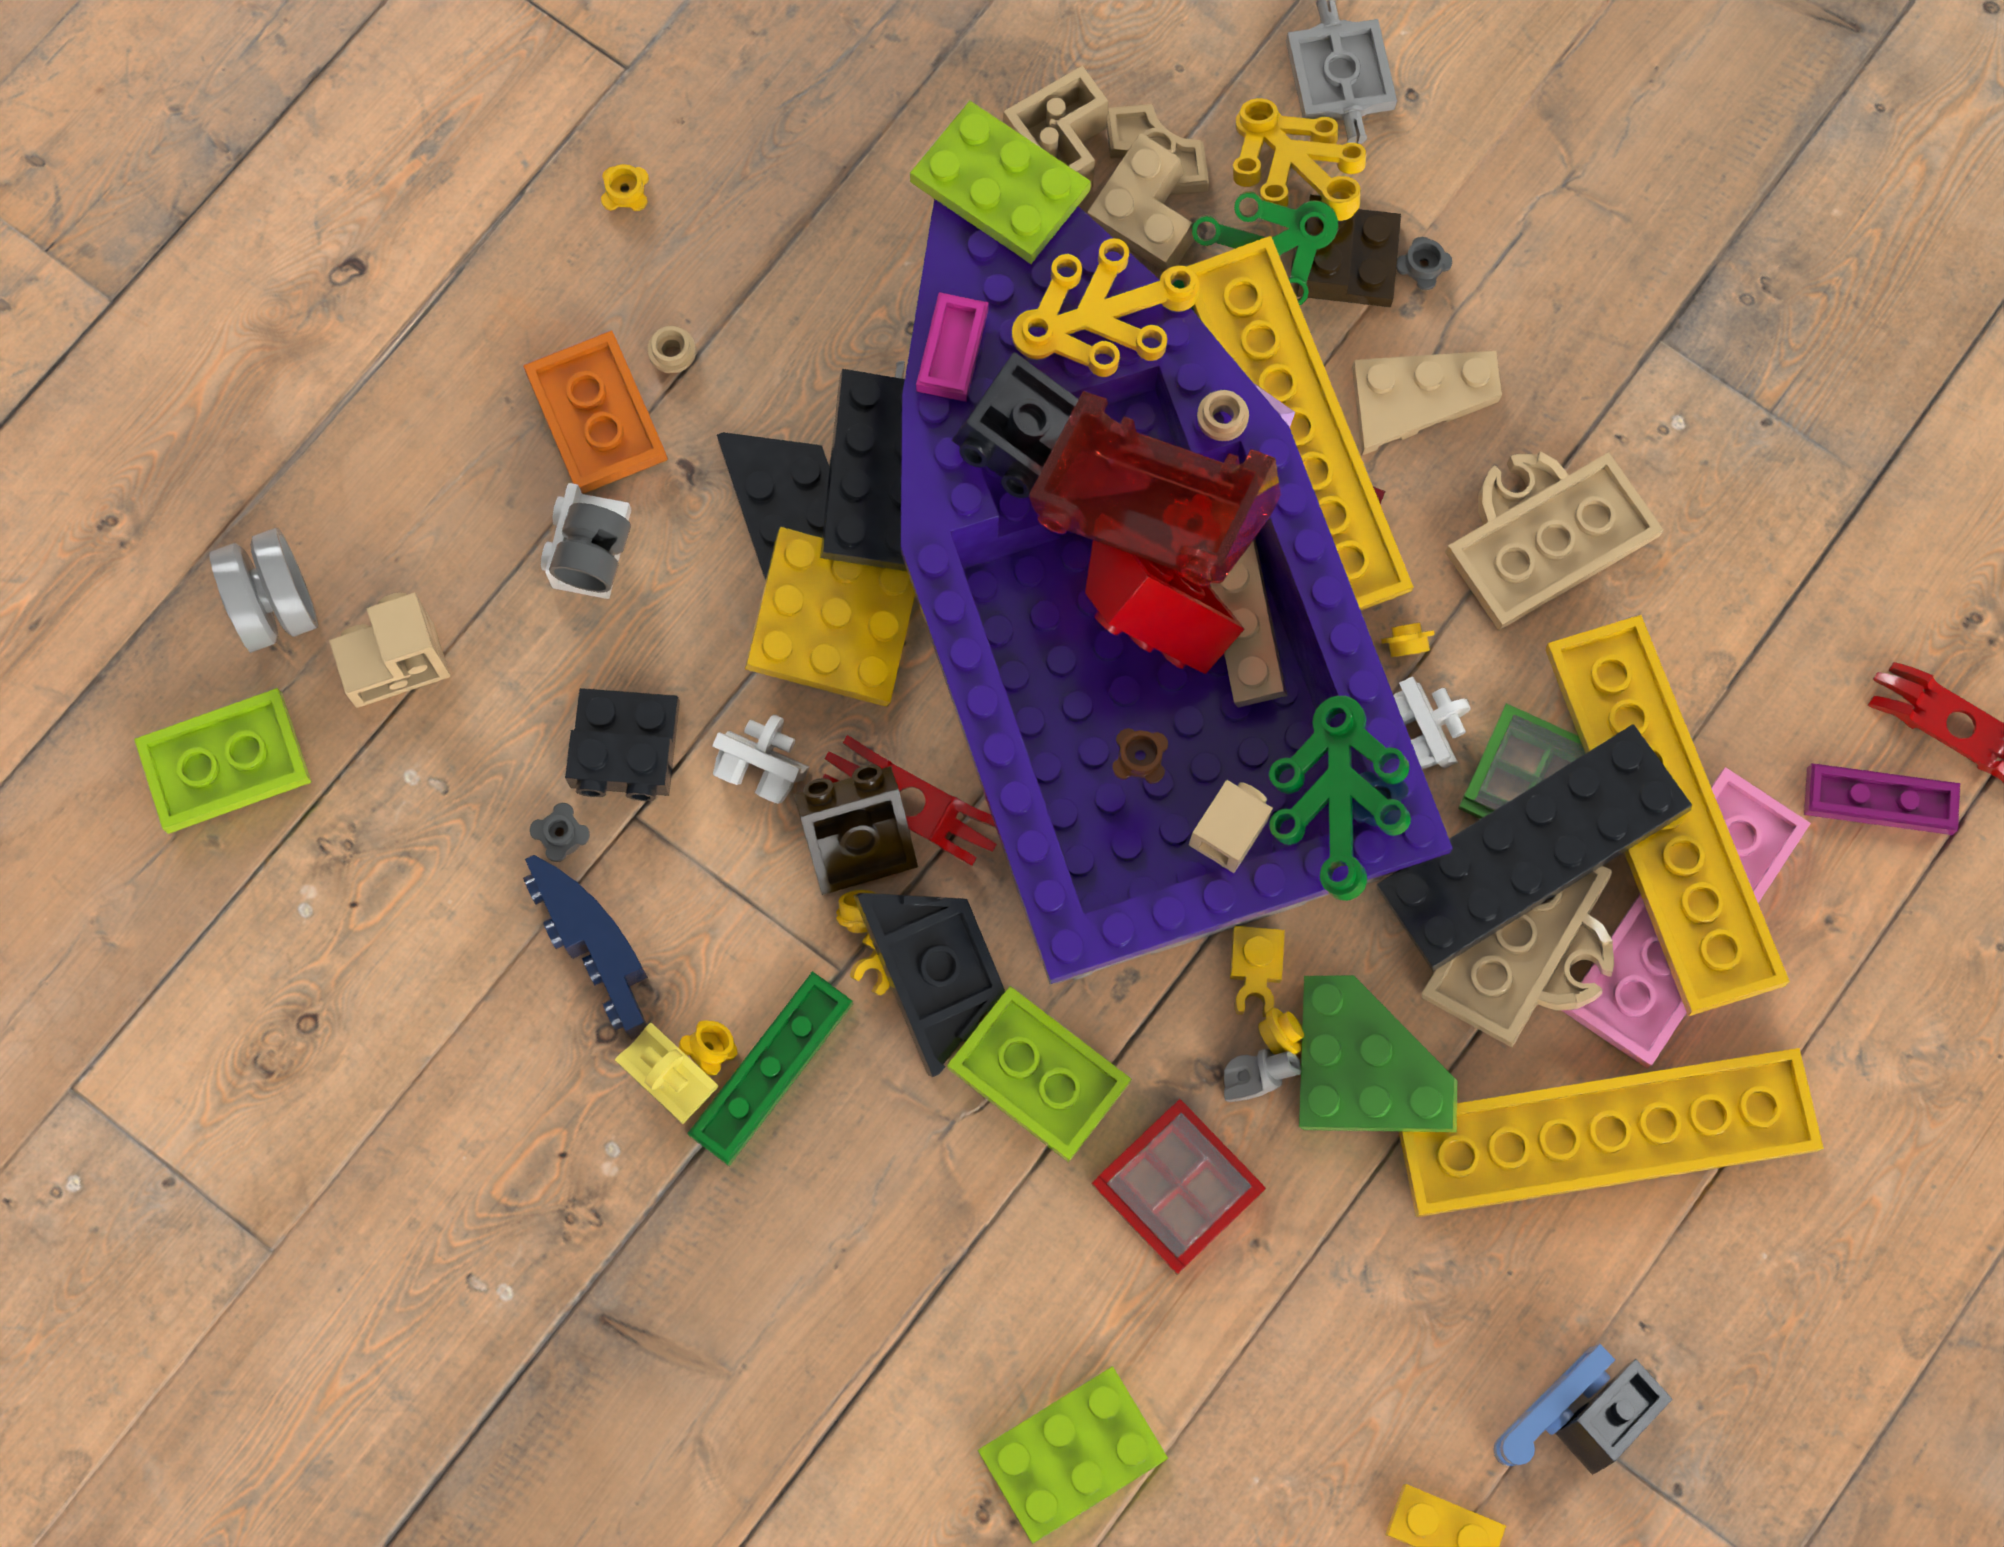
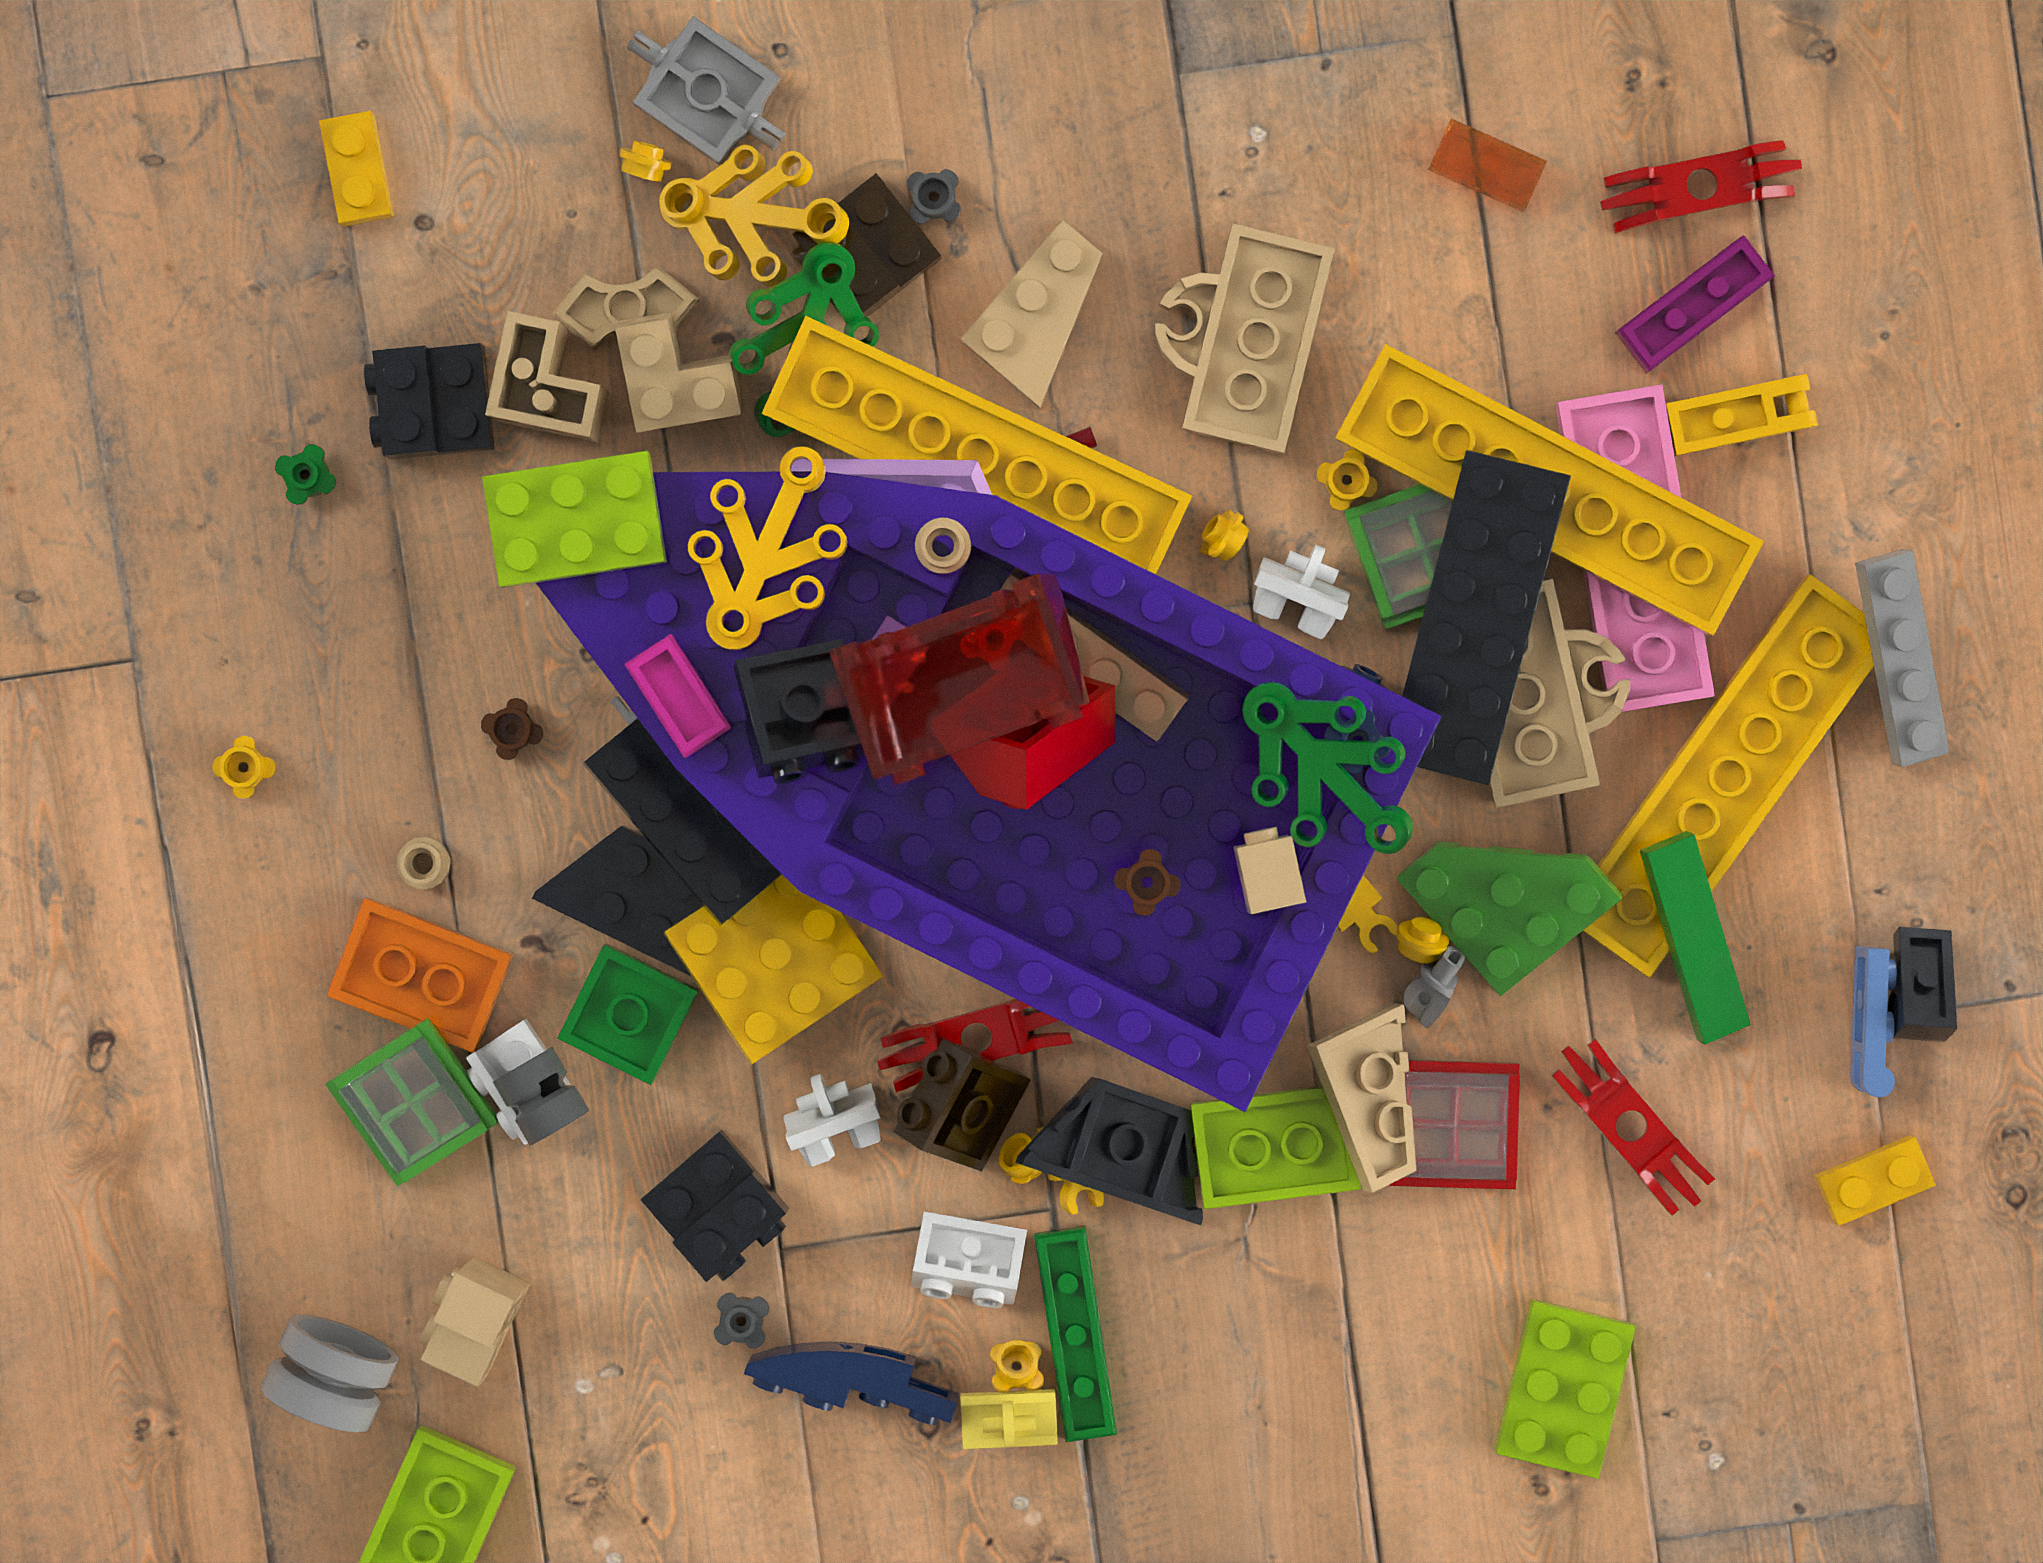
camera: 45 degrees left, 15 degrees up
(503, 482) = (412, 1102): none -> clear piece
(699, 564) = (628, 1014): none -> green plate
(750, 942) = (968, 1260): none -> white bracket
(811, 311) = (497, 725): none -> reddish brown plate
(851, 70) = (319, 480): none -> green plate
(972, 69) = (429, 400): none -> black plate
(1141, 1094) = (1367, 1093): none -> tan wing
(1259, 74) = (644, 161): none -> yellow plate
(1297, 1341) = (1653, 1148): none -> red piece
(1479, 1217) = (1695, 937): none -> green tile
(1540, 680) = (1341, 494): none -> yellow plate
(1814, 1167) = (1902, 657): none -> light grey plate
(1819, 579) = (1487, 165): none -> clear orange plate
(1847, 898) = (1739, 415): none -> yellow plate

